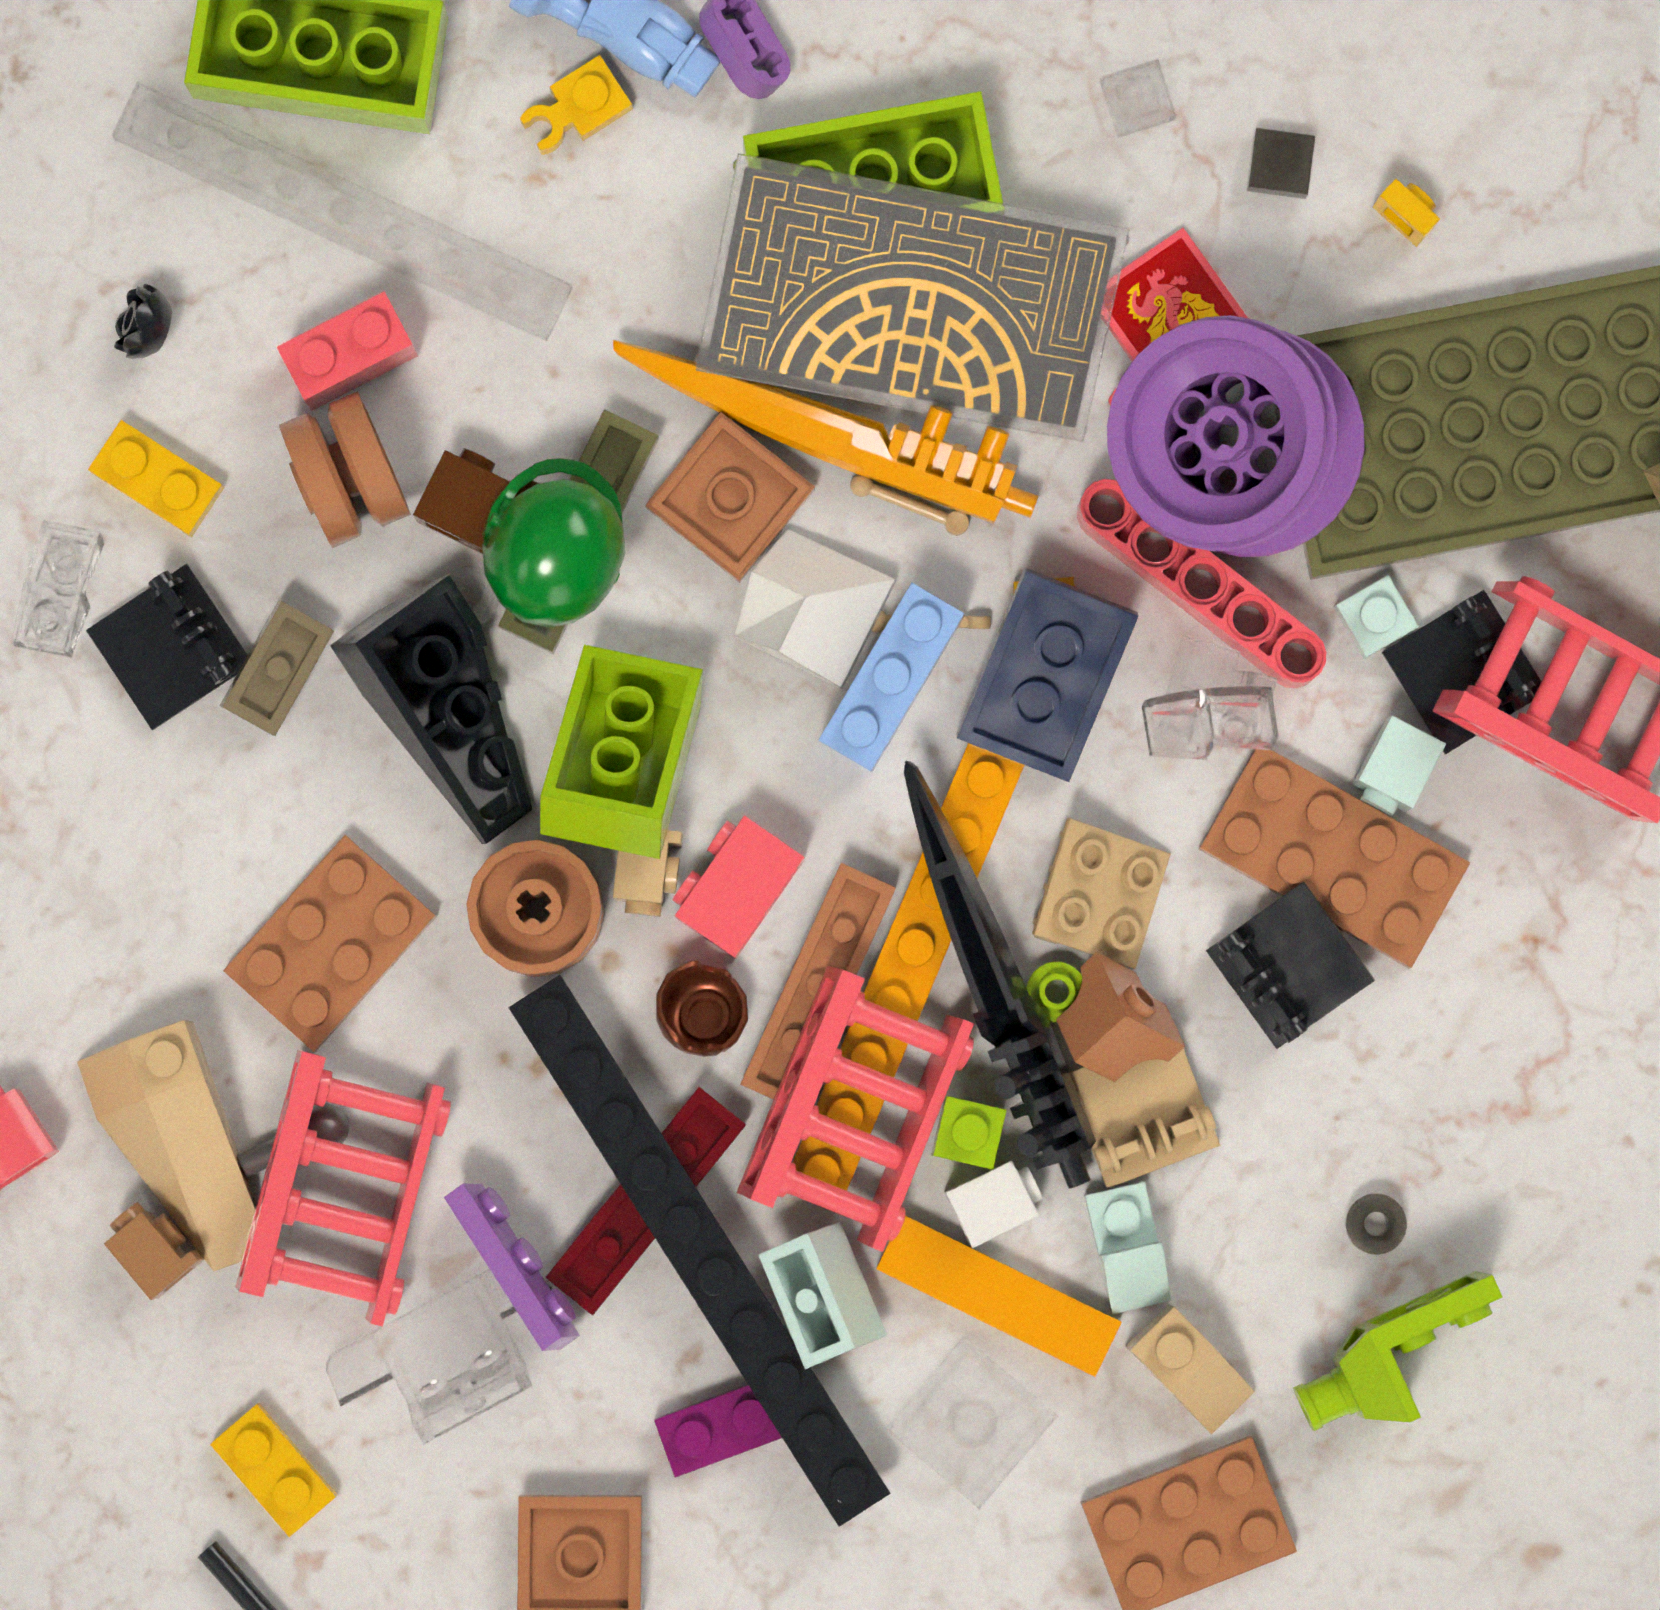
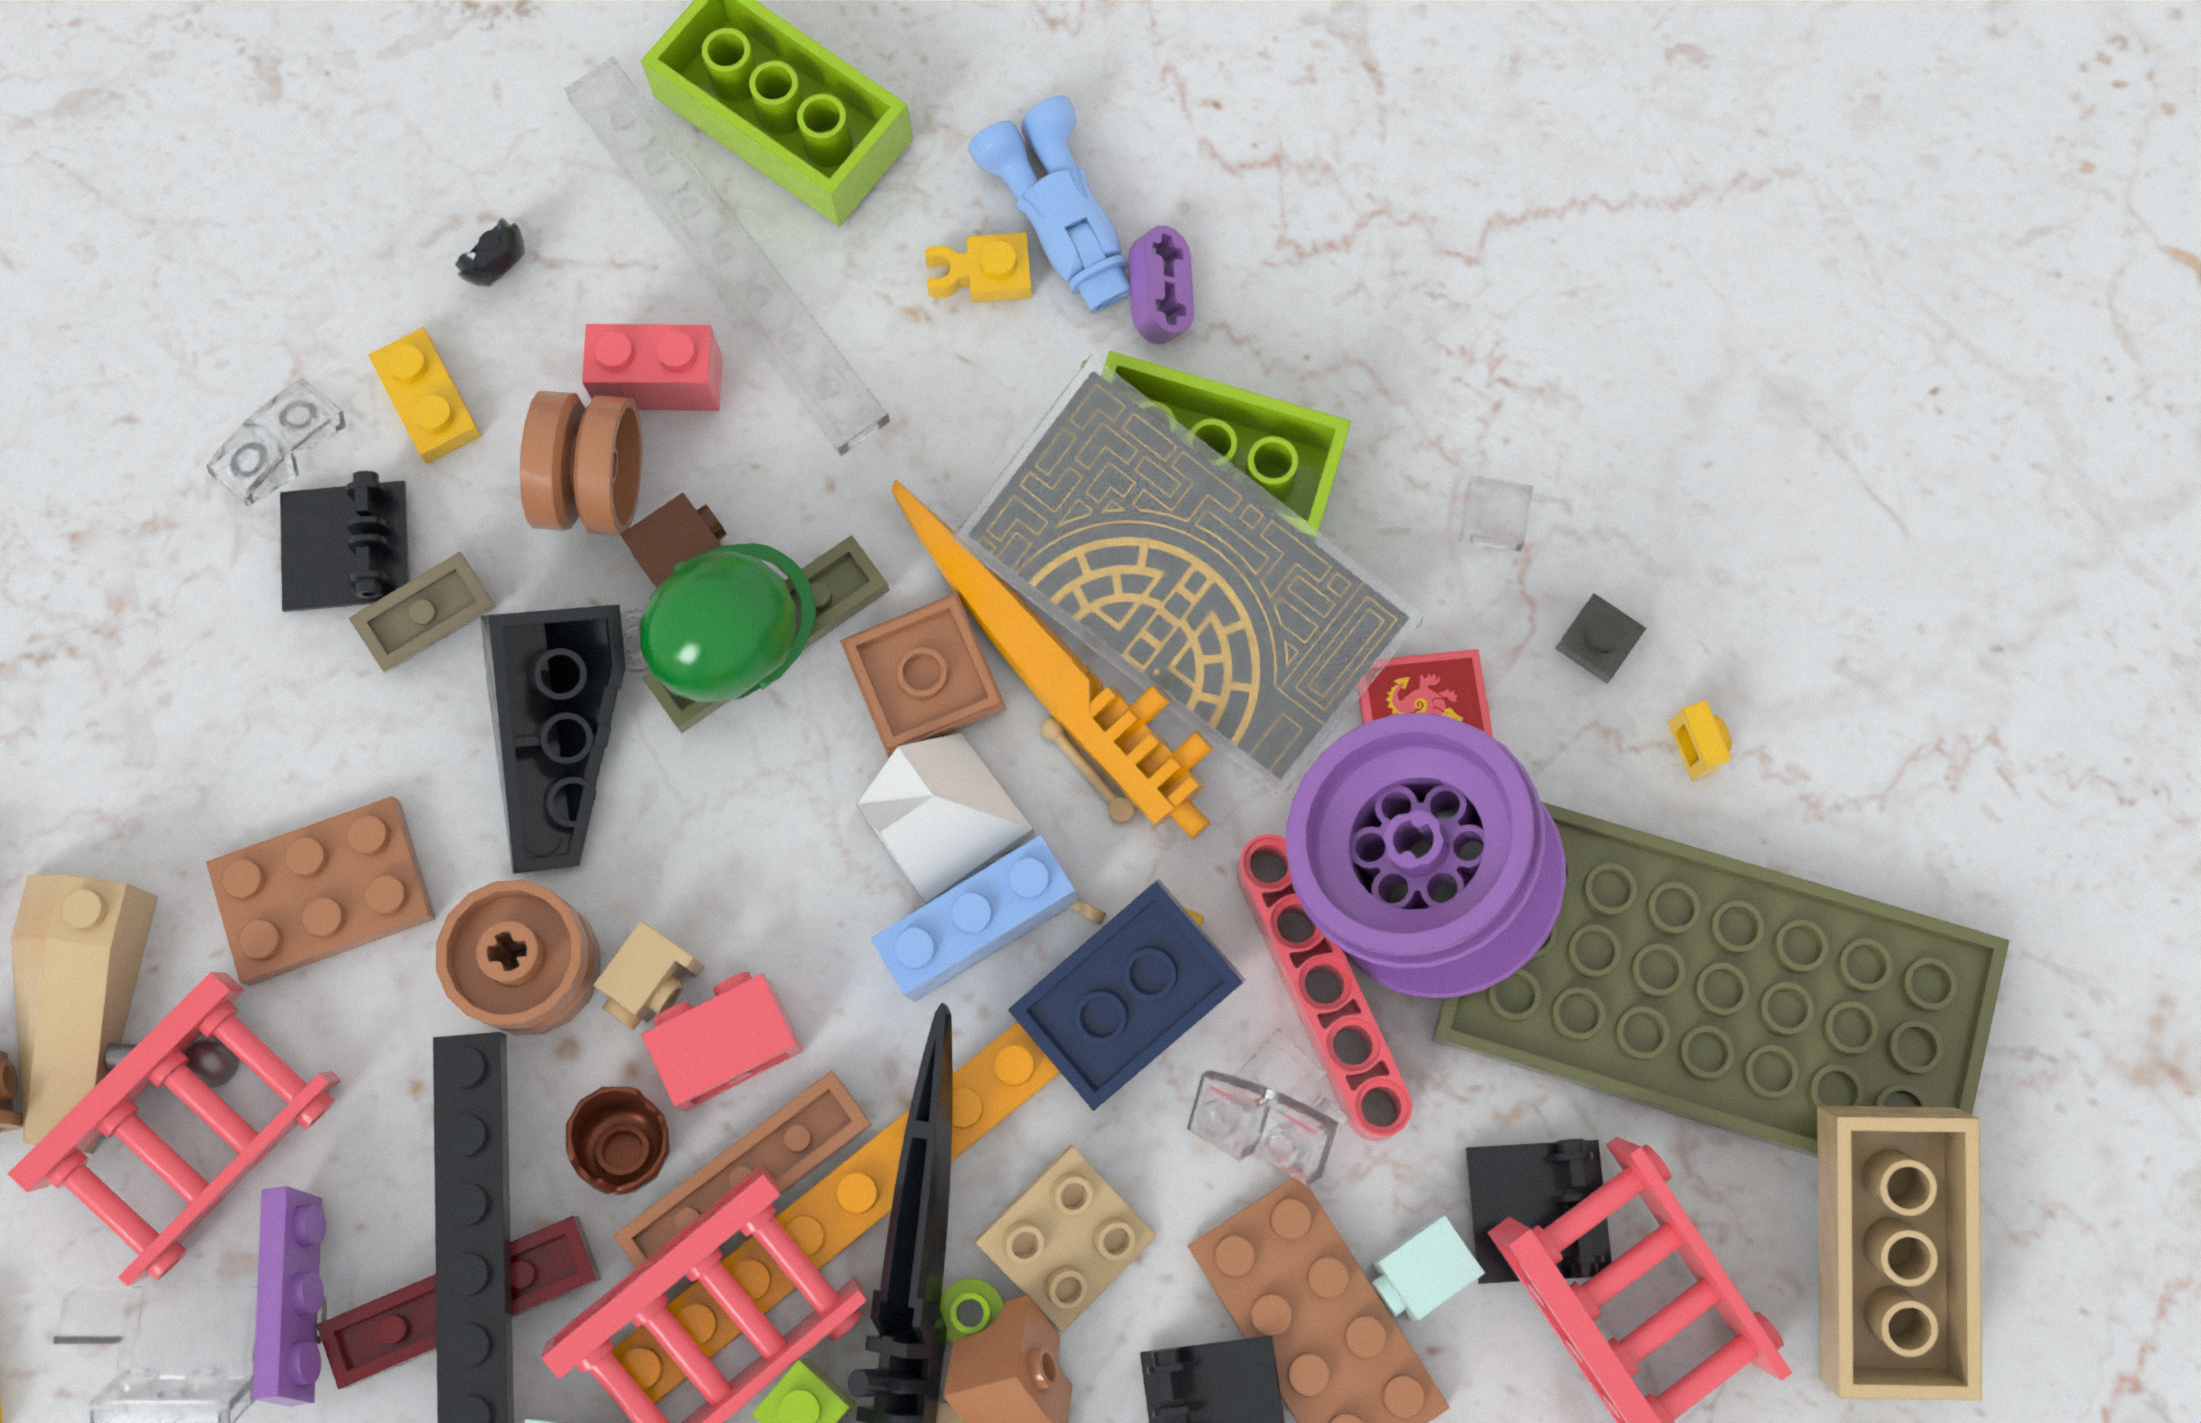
camera: 35 degrees right, 10 degrees down
(621, 751) = (676, 850): lime brick -> none
(1376, 617) = (1477, 1110): light aqua plate -> none

